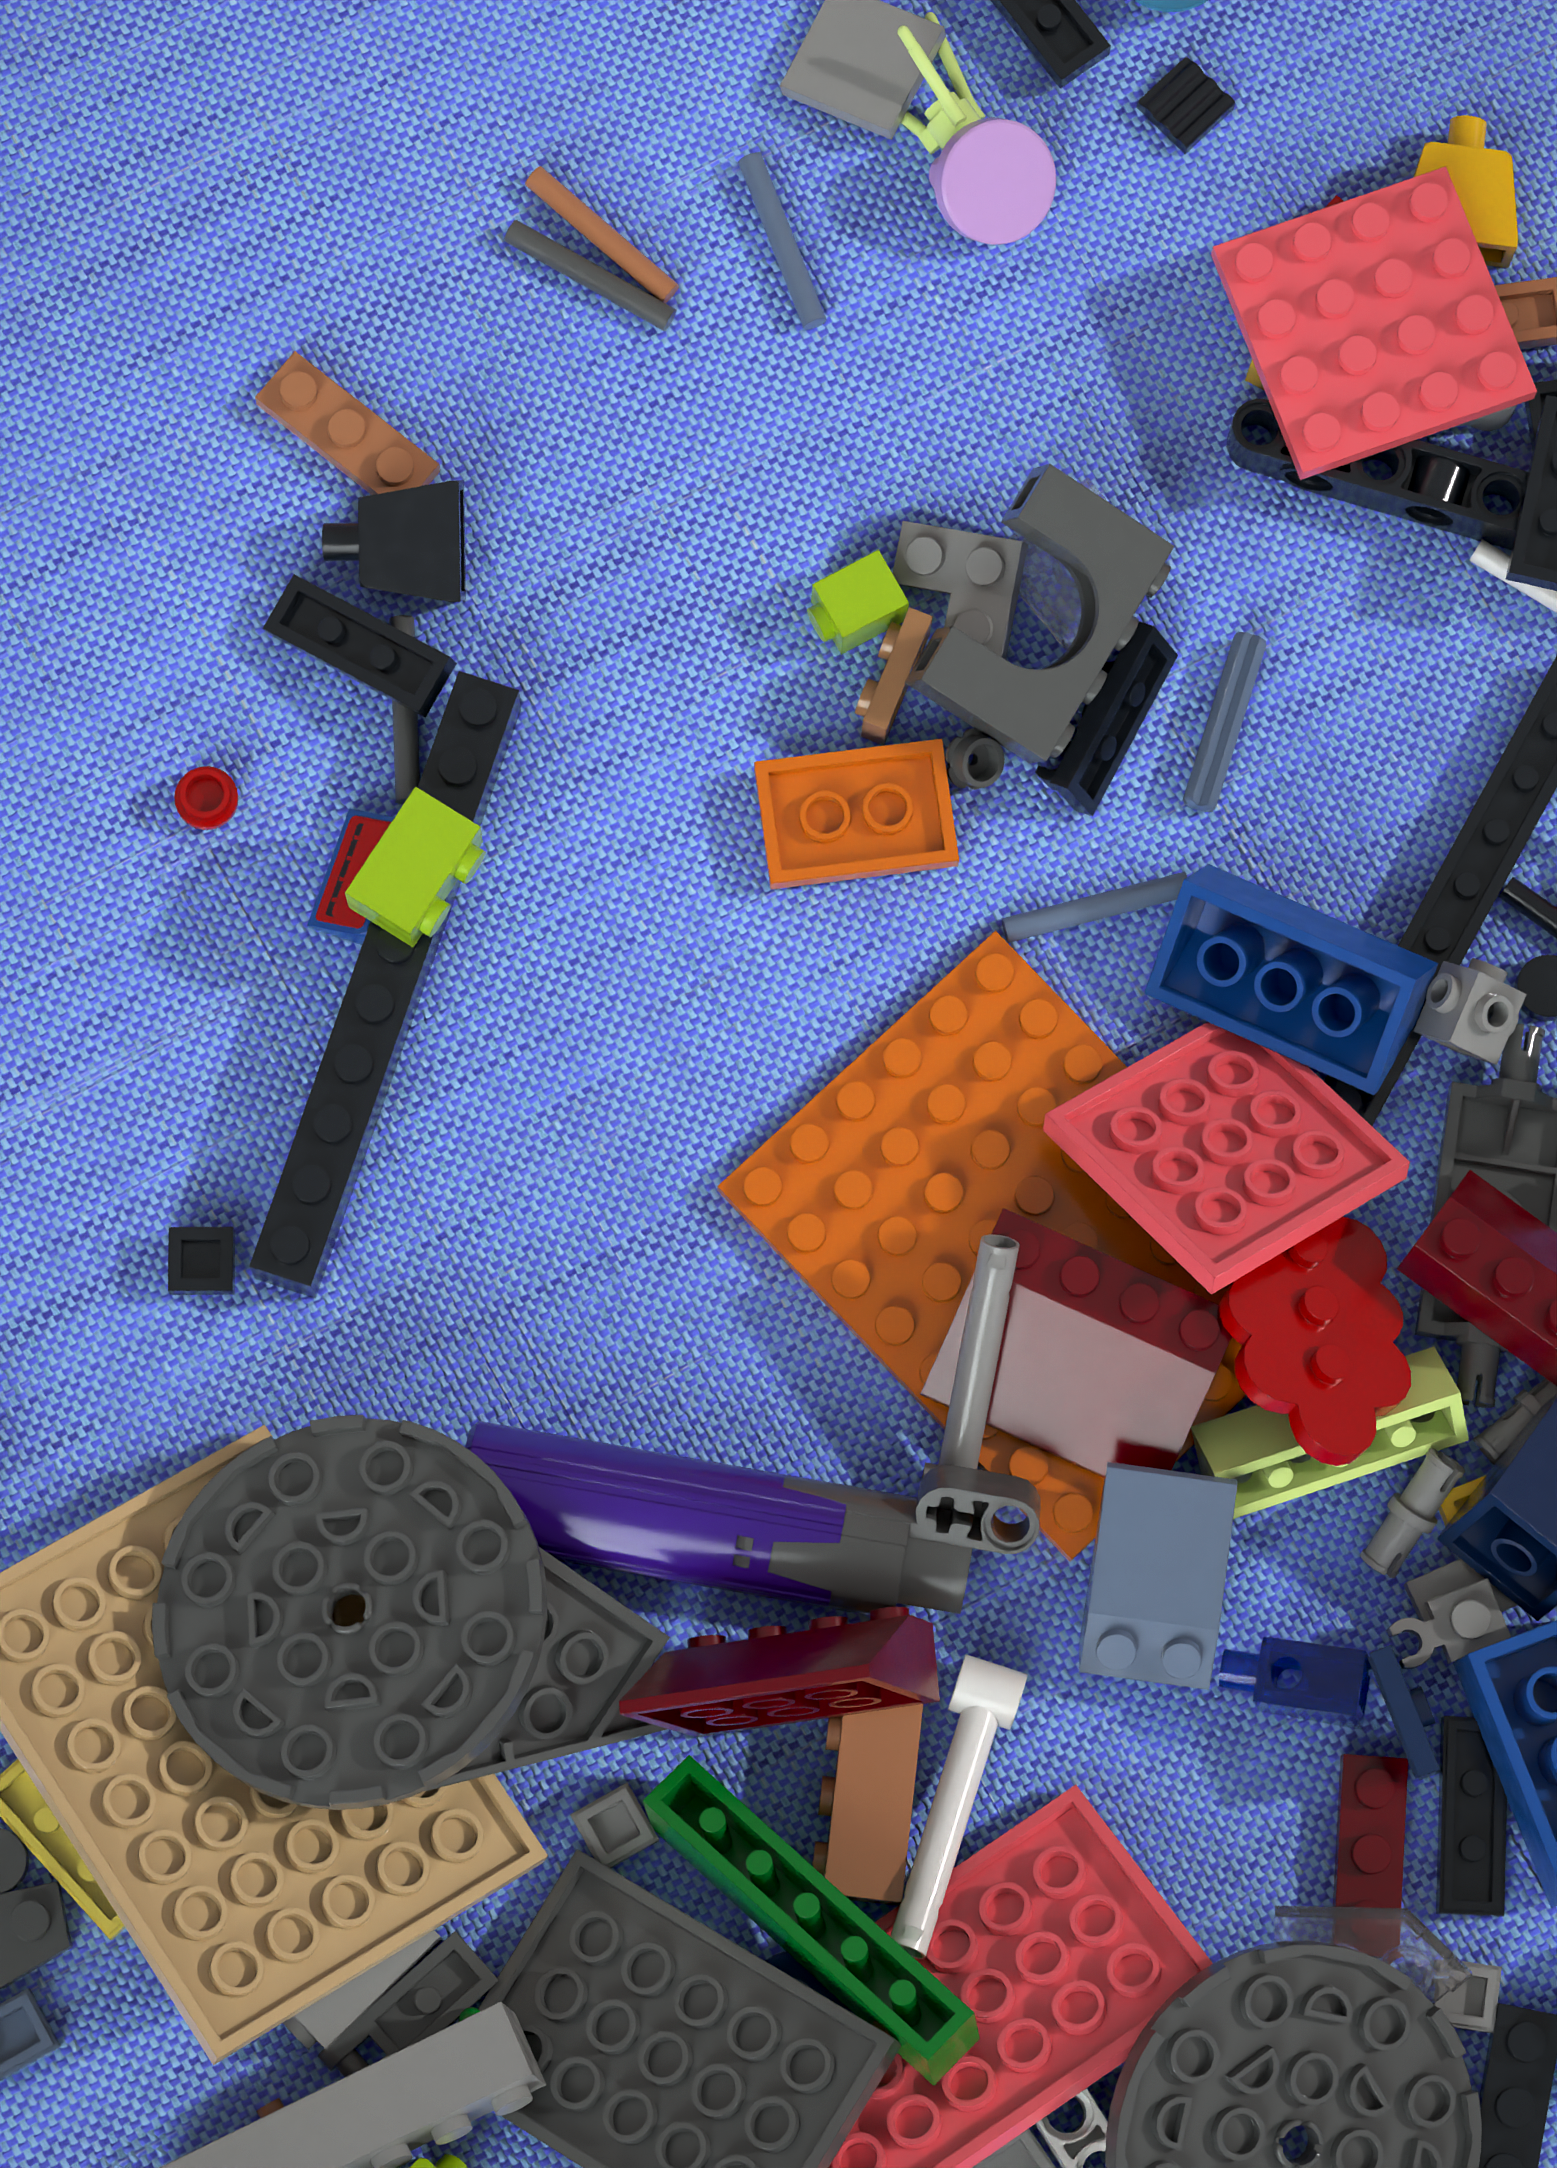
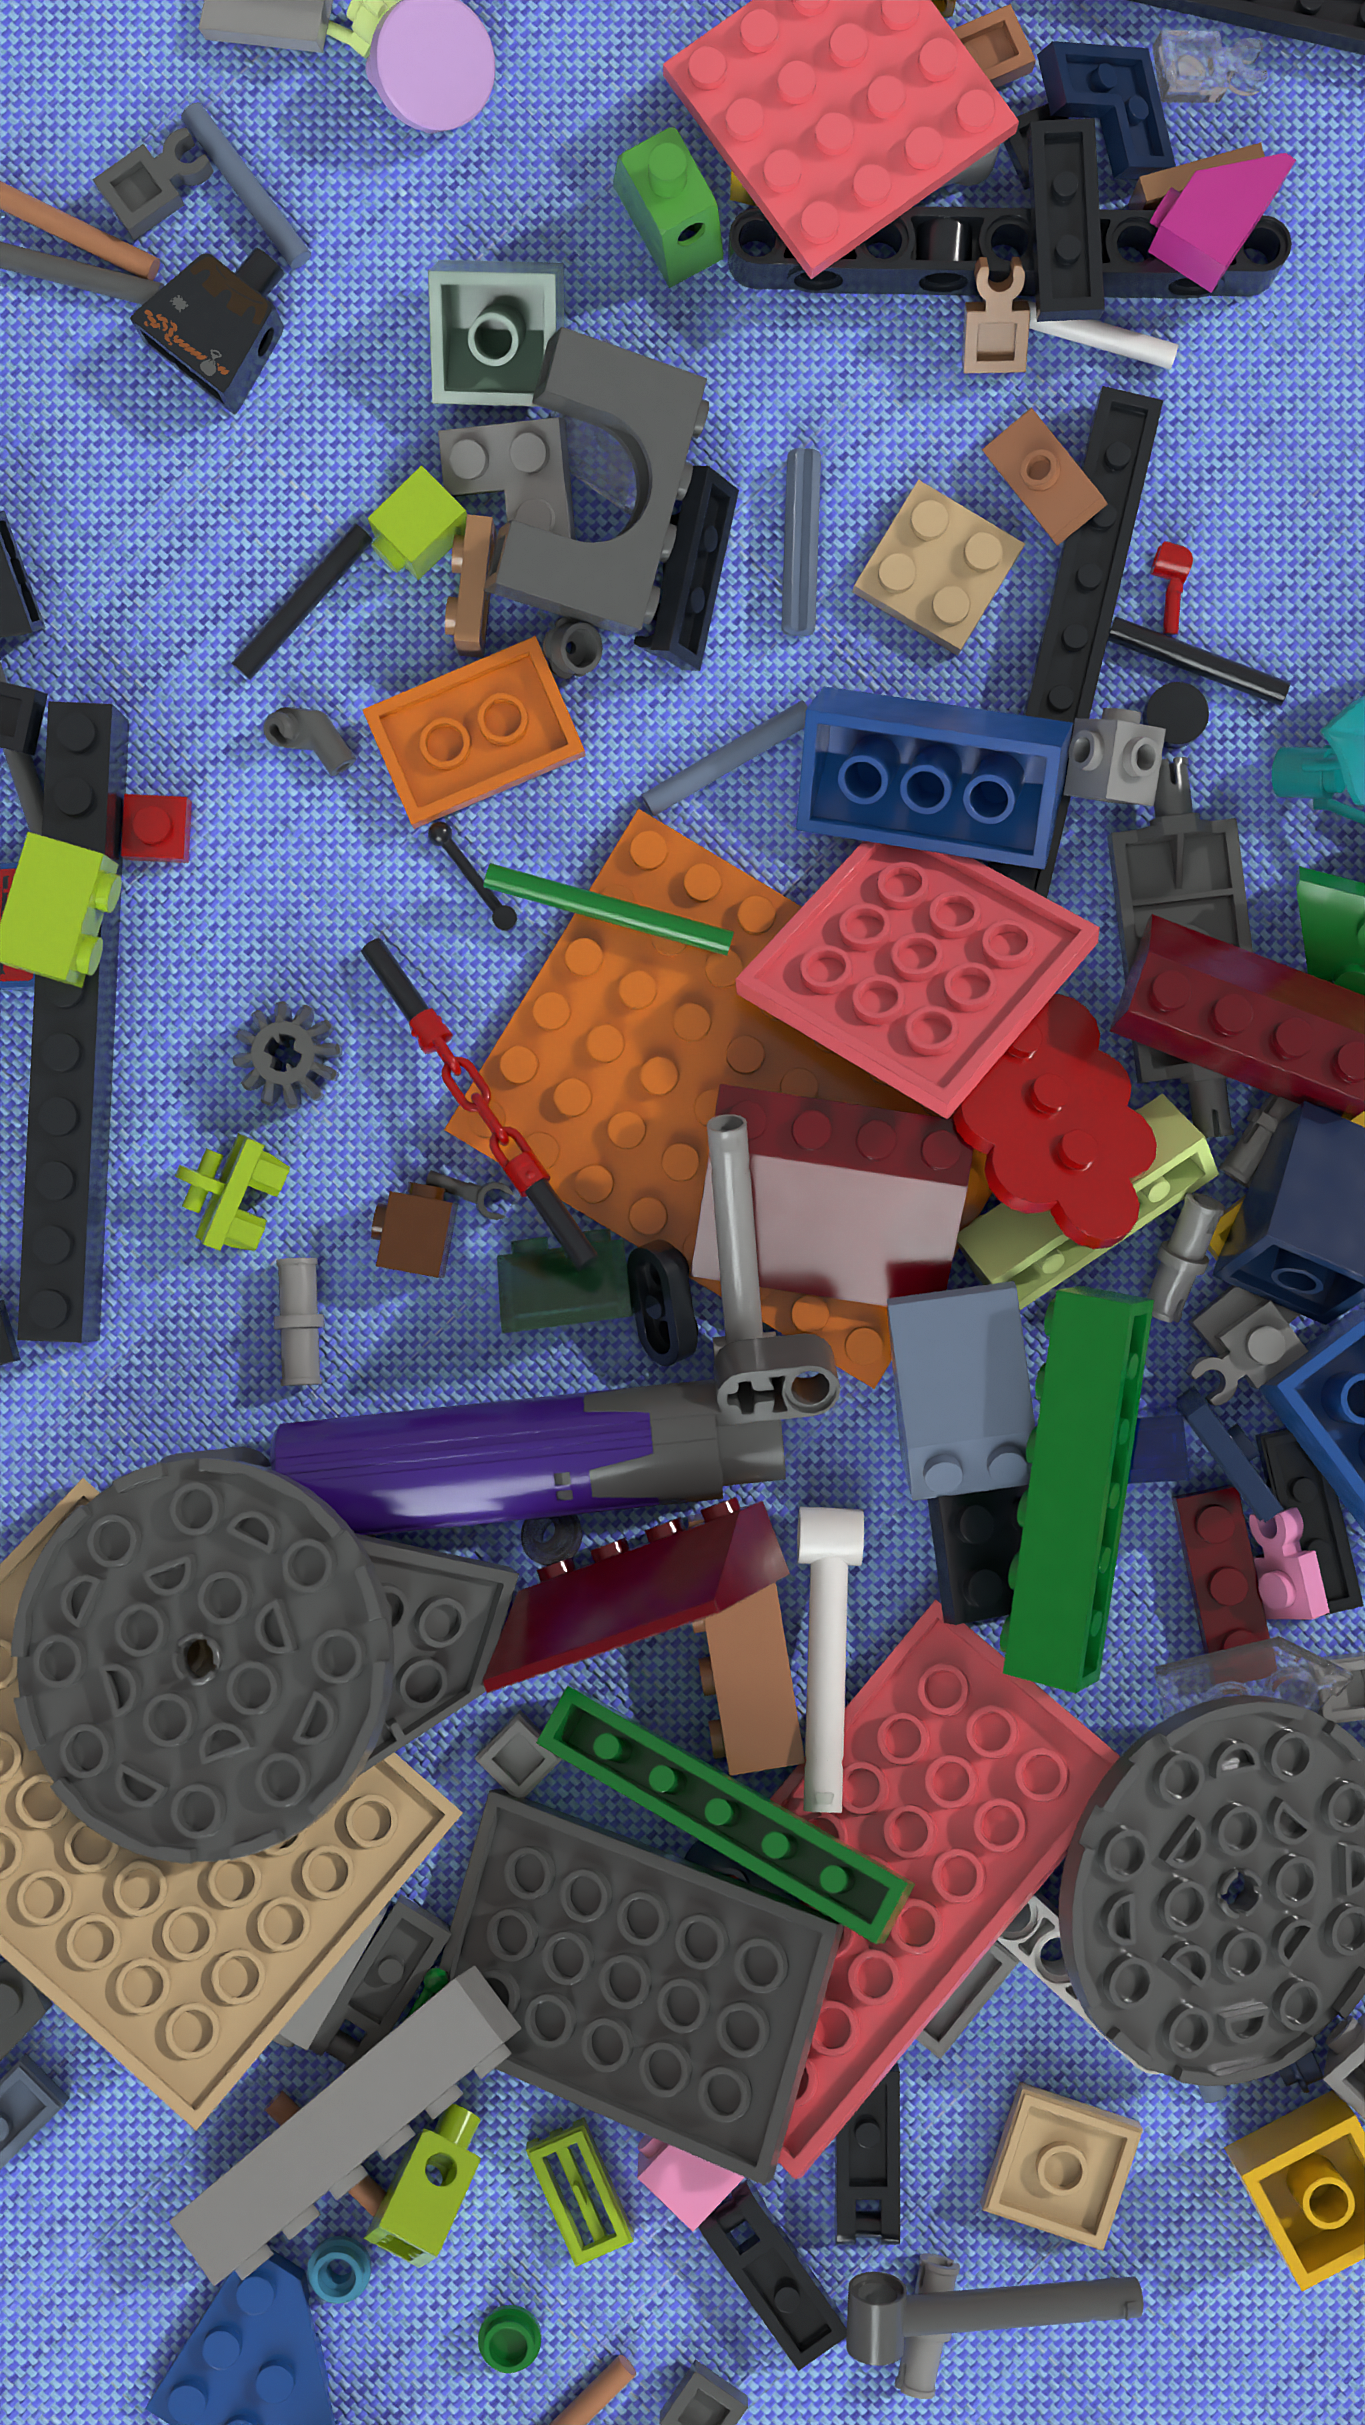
camera: 15 degrees left, 10 degrees up
(476, 1210) = (223, 1219): none -> lime hips
(519, 819) = (156, 828): none -> red plate
(521, 1333) = (299, 1321): none -> light grey pin
(586, 1095) = (268, 1066): none -> dark grey gear
(661, 1275) = (415, 1230): none -> reddish brown brick
(685, 218) = (144, 187): none -> dark grey plate
(697, 769) = (309, 731): none -> dark grey arm
(717, 363) = (216, 324): none -> black torso
(722, 1620) = (561, 1546): none -> clear smoke plate
(723, 644) = (302, 601): none -> black bar
(725, 1255) = (468, 1191): none -> dark grey hand
(788, 1240) = (525, 1169): none -> piece
(796, 1366) = (546, 1290): none -> clear green slope
(833, 998) = (503, 916): none -> black hinge
(886, 1412) = (662, 1302): none -> black plate
(940, 1017) = (608, 909): none -> green bar
(982, 441) = (491, 329): none -> sand green slope
(1150, 1751) = (973, 1551): none -> black plate
(1182, 368) = (664, 197): none -> bright green torso
(1243, 1693) = (1076, 1486): none -> green brick
(1352, 782) = (938, 567): none -> tan plate
(1435, 1857) = (1286, 1575): none -> bright pink plate
(1469, 572) = (997, 327): none -> medium nougat plate
(1477, 725) = (1044, 476): none -> nougat plate

